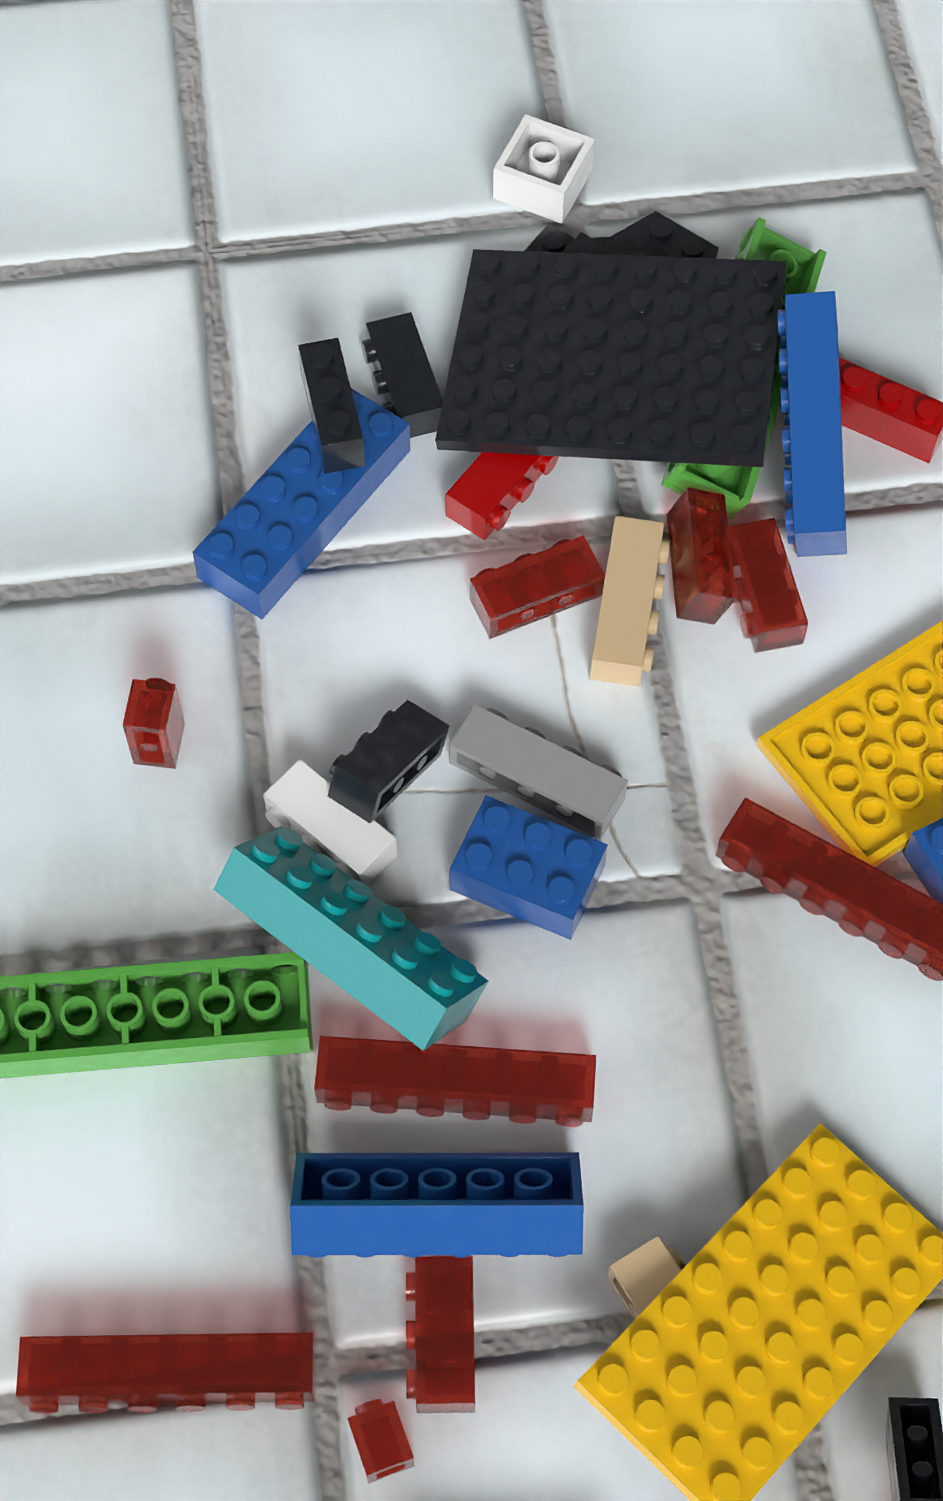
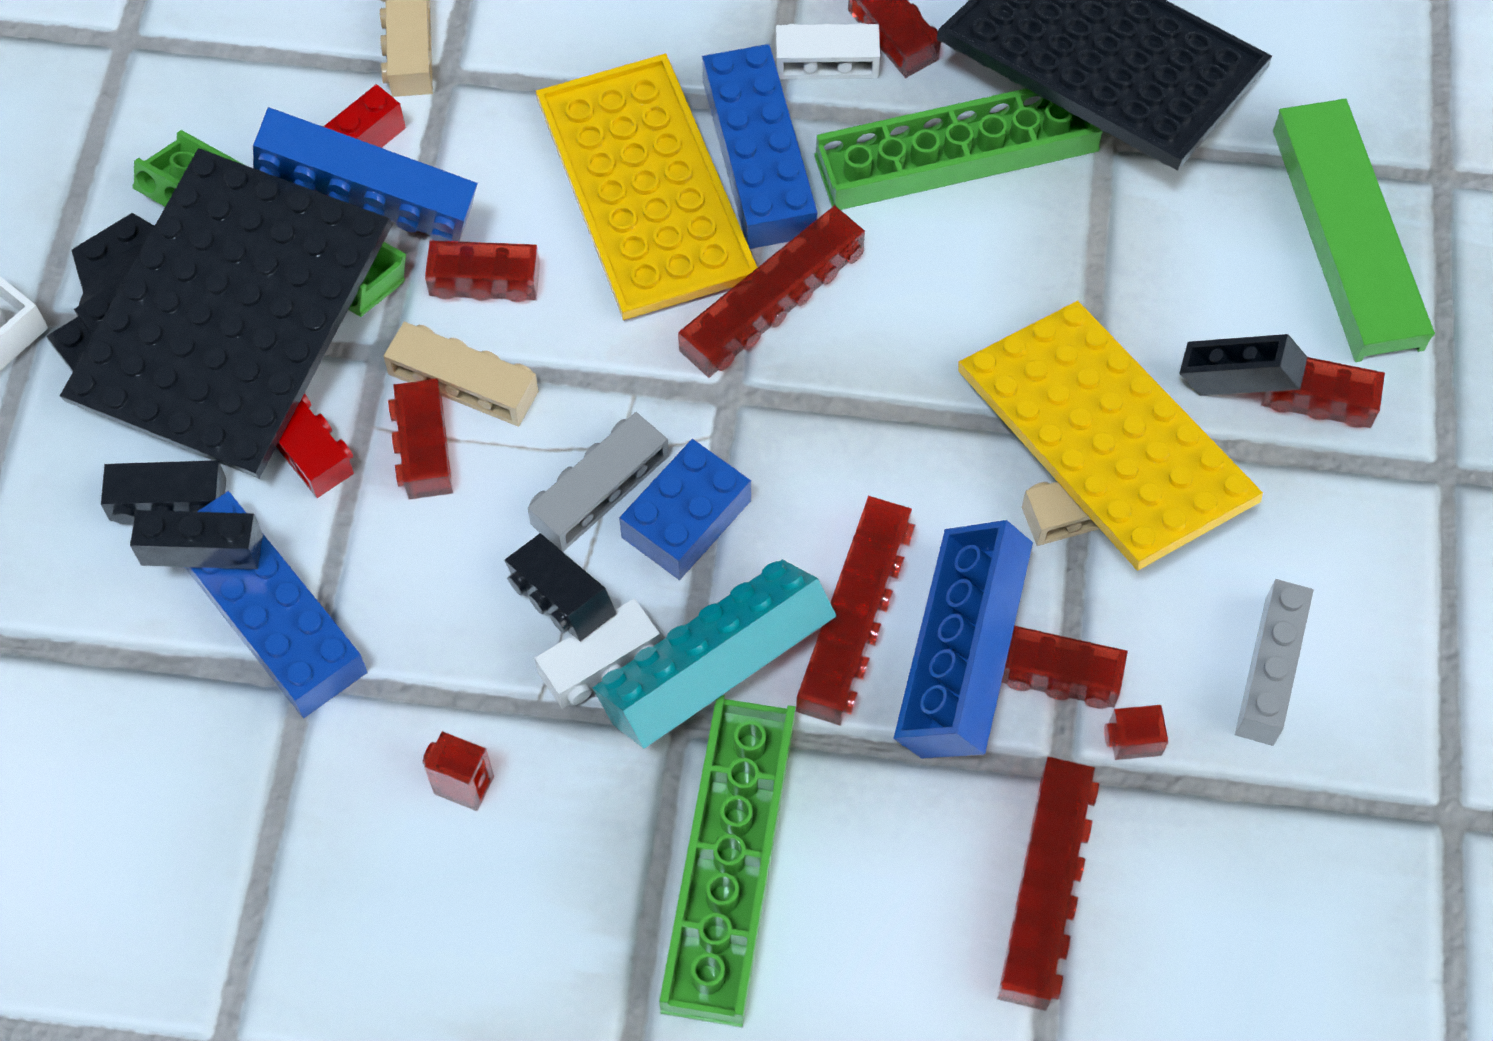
camera: 75 degrees left, 0 degrees up
(701, 556) = (443, 304): clear red brick -> none

